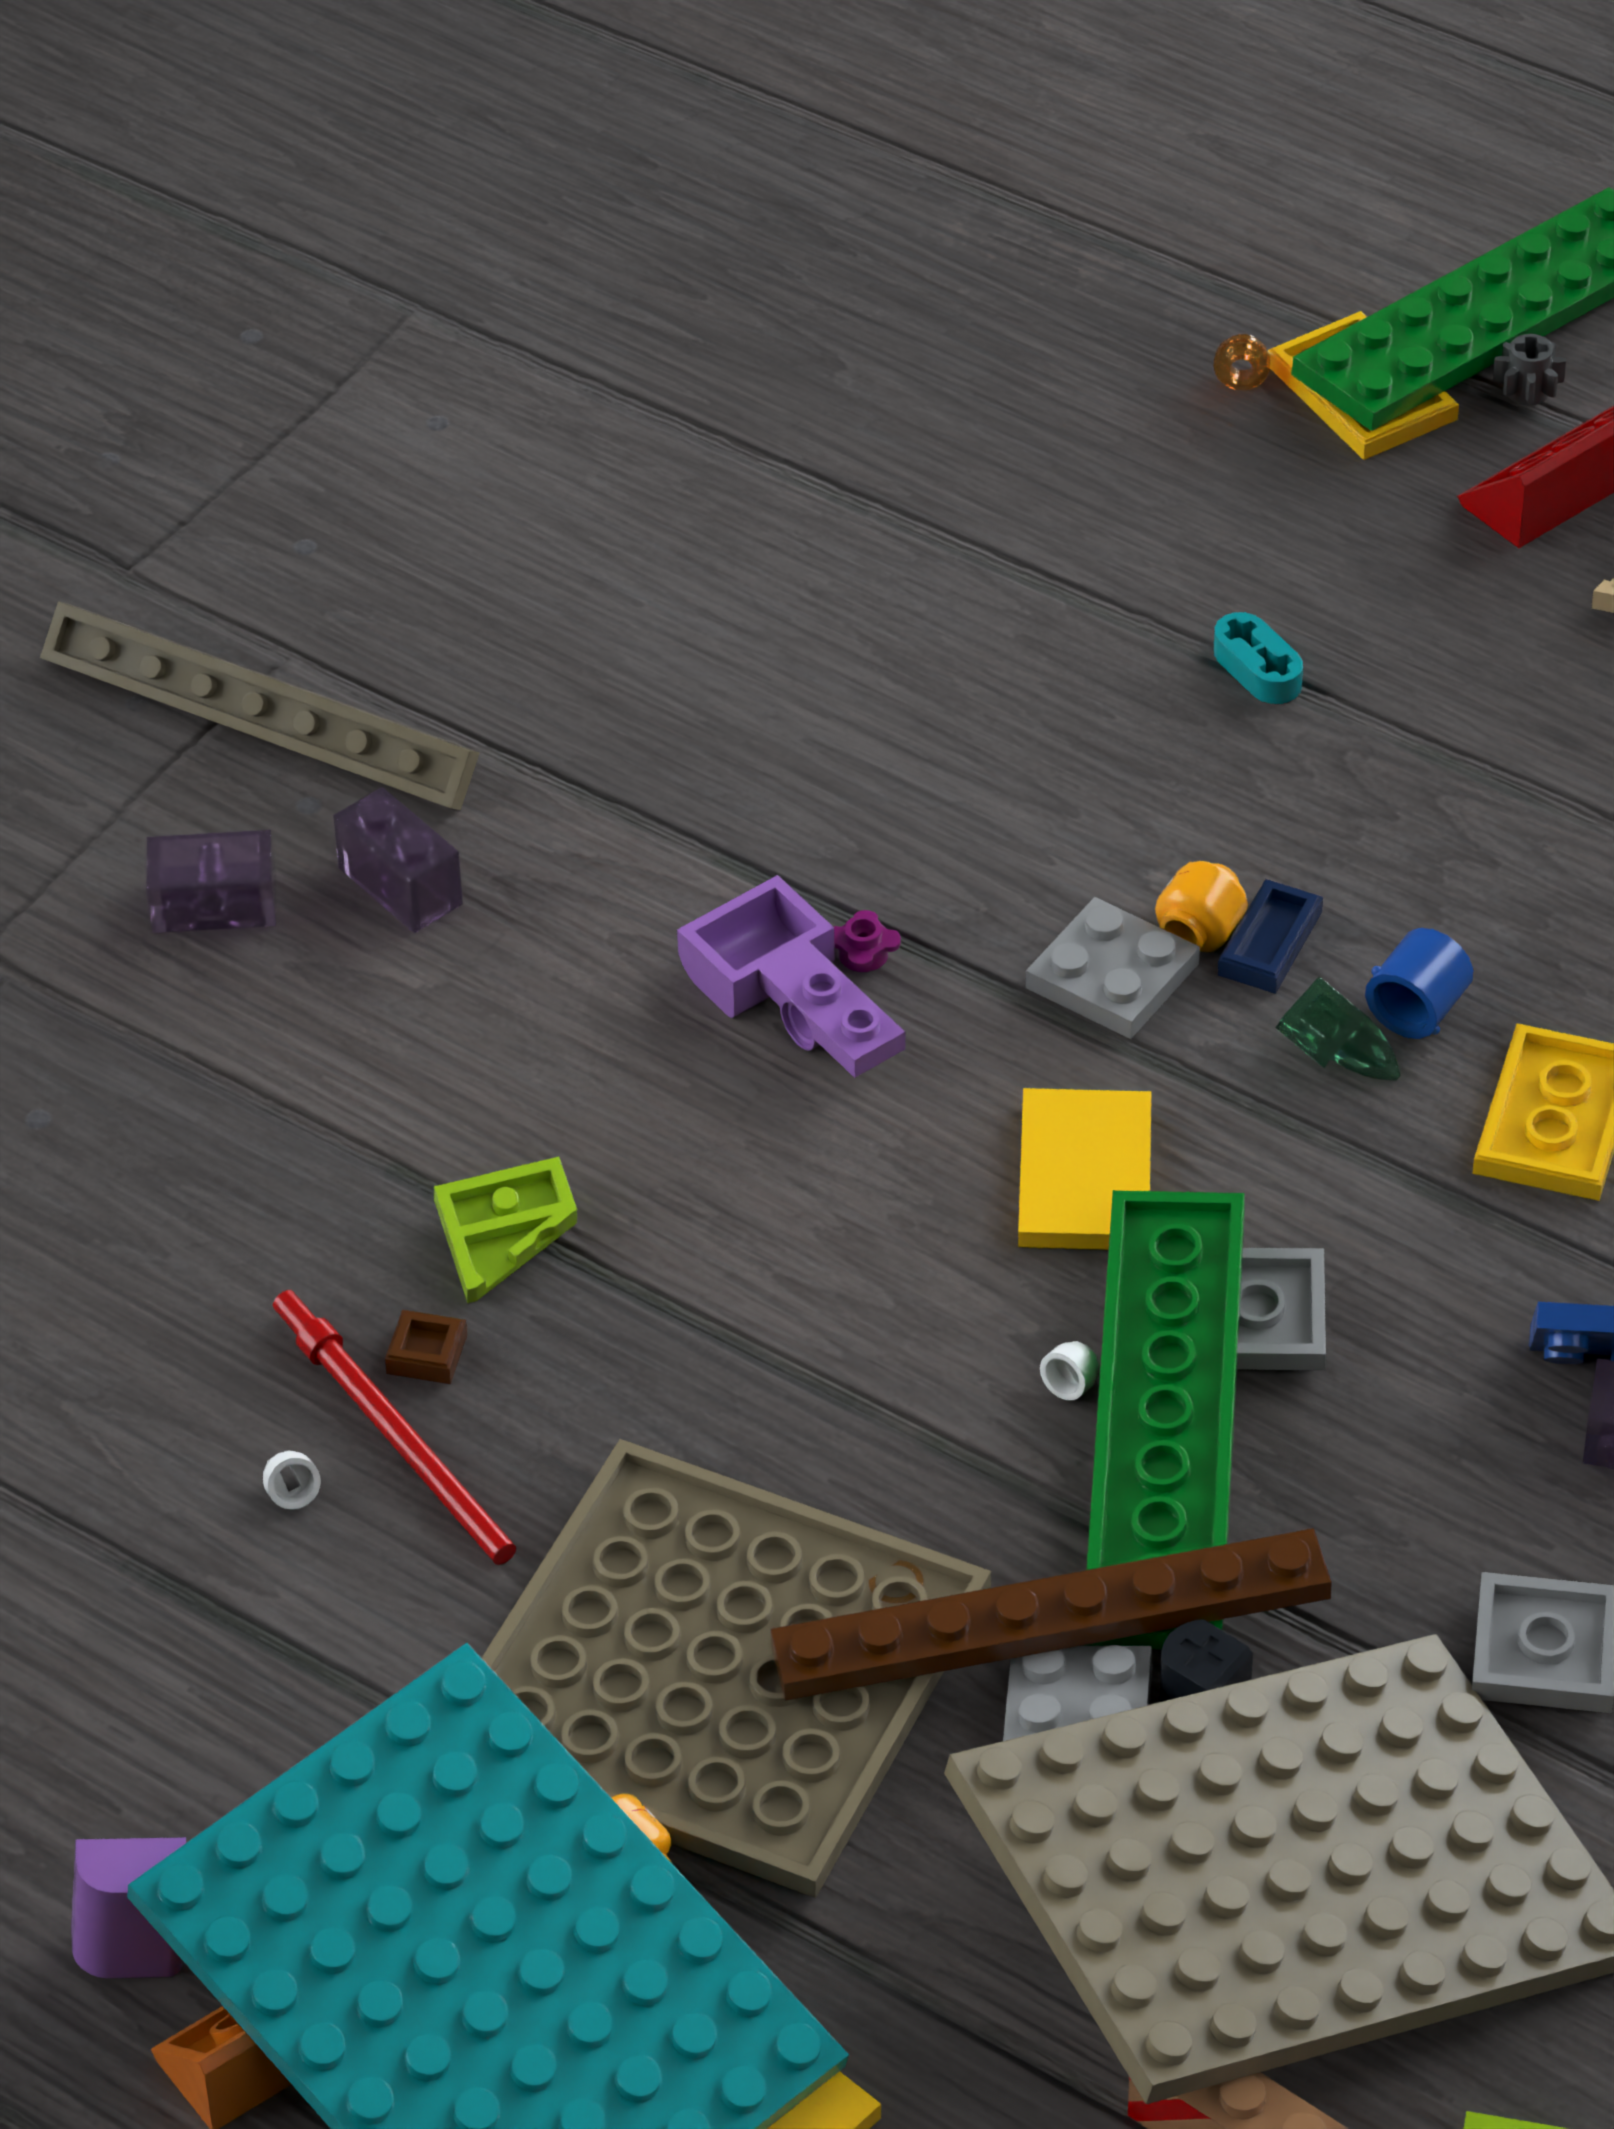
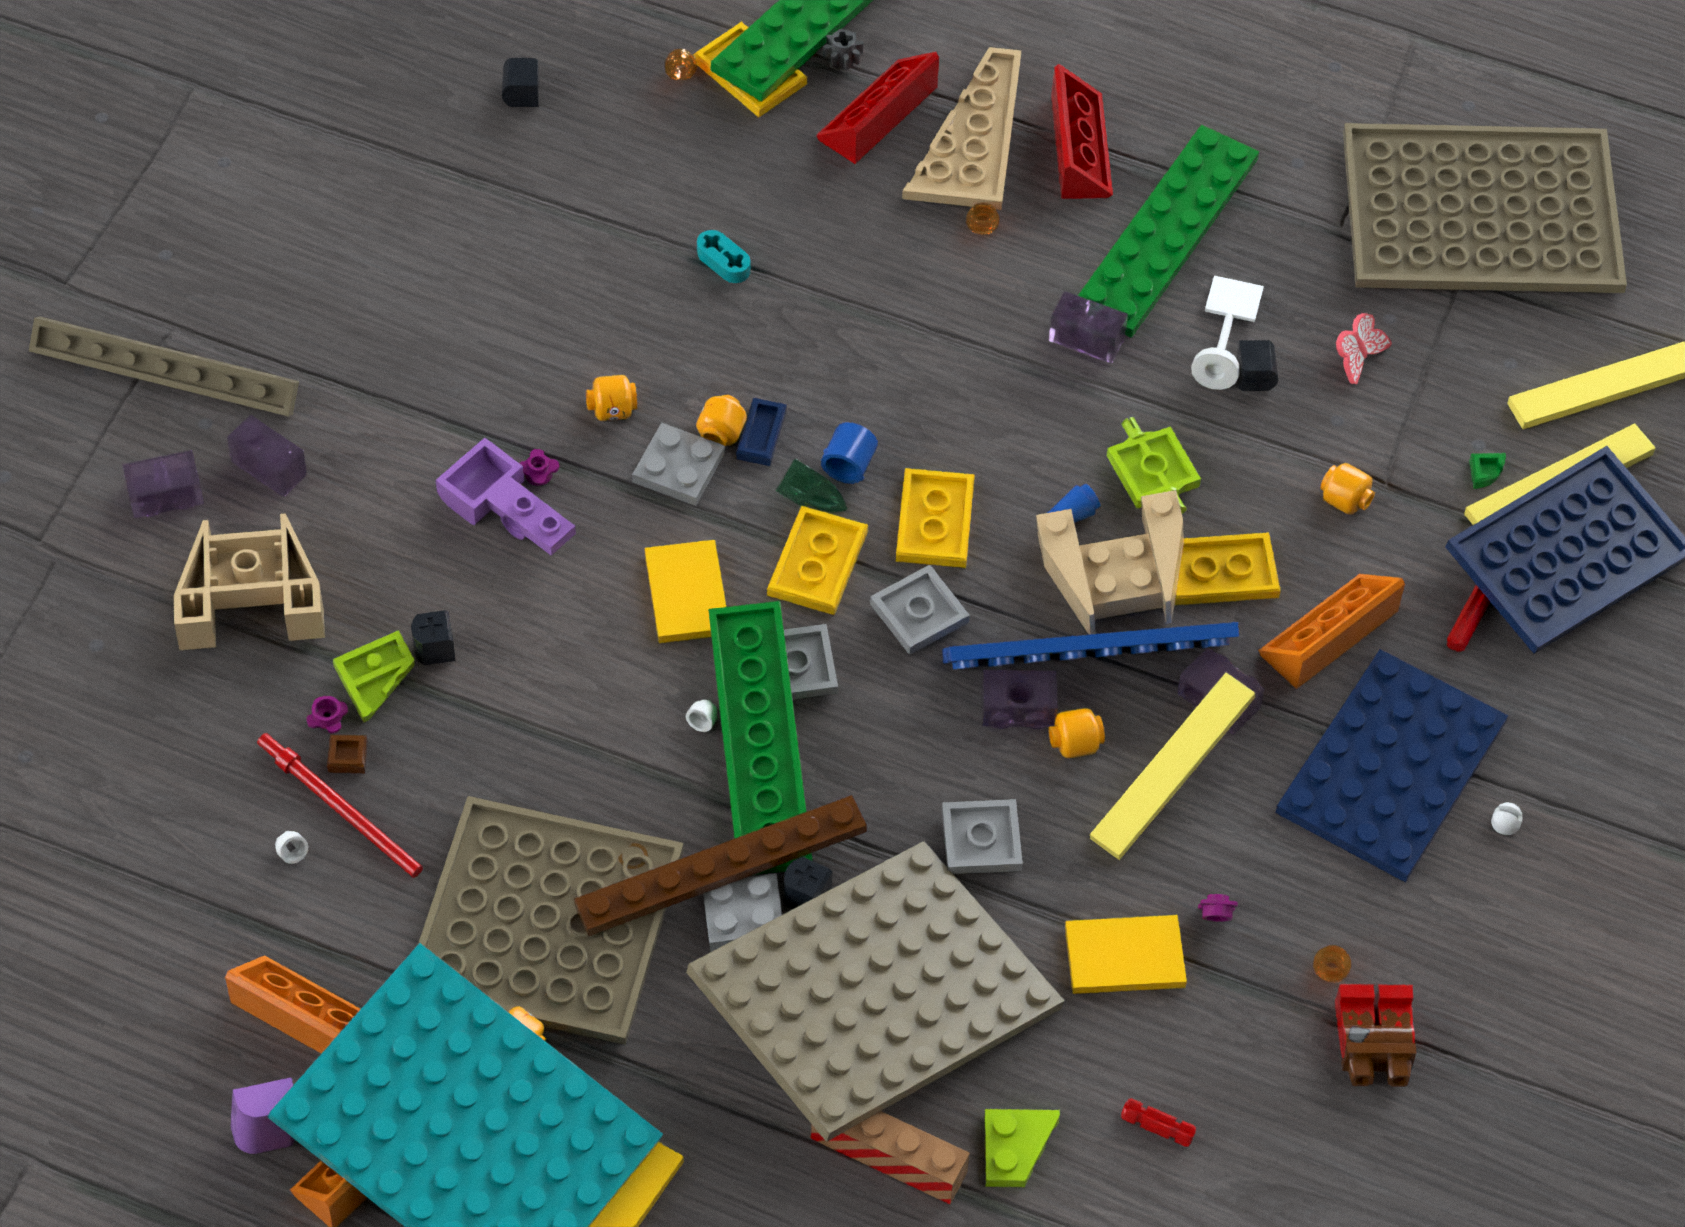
camera: 15 degrees left, 10 degrees up
(209, 1721) = (289, 1002): none -> orange slope
(311, 1030) = (246, 572): none -> tan wedge
(405, 1276) = (327, 705): none -> magenta plate
(617, 1178) = (433, 638): none -> black piece
(962, 357) = (520, 82): none -> black piece
(1015, 847) = (612, 398): none -> light orange head
(1331, 1151) = (817, 560): none -> yellow tile
(1500, 1252) = (919, 609): none -> light grey plate

